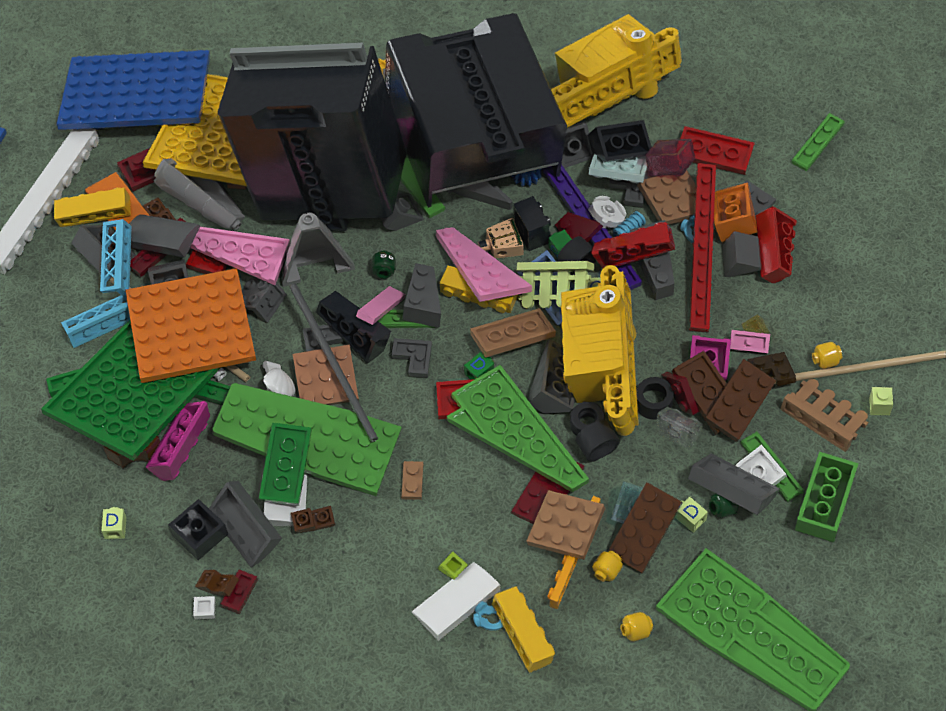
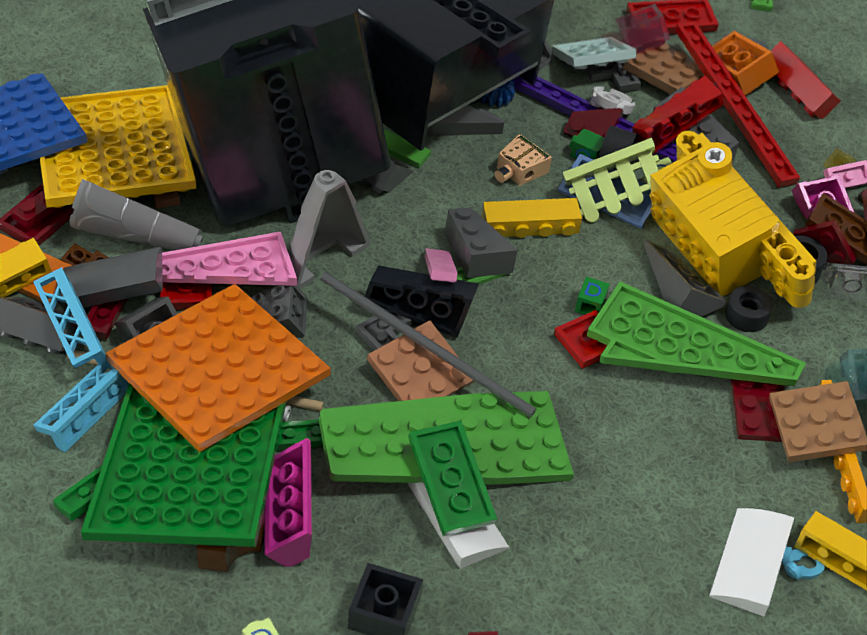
camera: 35 degrees left, 10 degrees down
(245, 523) = (450, 576): dark grey slope -> none
(277, 380) = (365, 389): white animal -> none
(313, 520) = (519, 535): reddish brown slope -> none
(383, 264) = (405, 227): dark green head -> none
(412, 480) = (602, 445): medium nougat plate -> none
(417, 352) = (506, 304): dark grey plate -> none
(452, 566) = (719, 521): lime slope -> none
(481, 271) = (526, 194): bright pink wing -> none
(512, 332) = (603, 247): medium nougat plate -> none
(531, 223) = (547, 130): black brick -> none
(597, 440) = (780, 322): black piece -> none
(620, 141) = (579, 29): black slope -> none
(634, 221) = (643, 106): medium azure piece -> none
(741, 254) = (775, 99): dark grey slope -> none

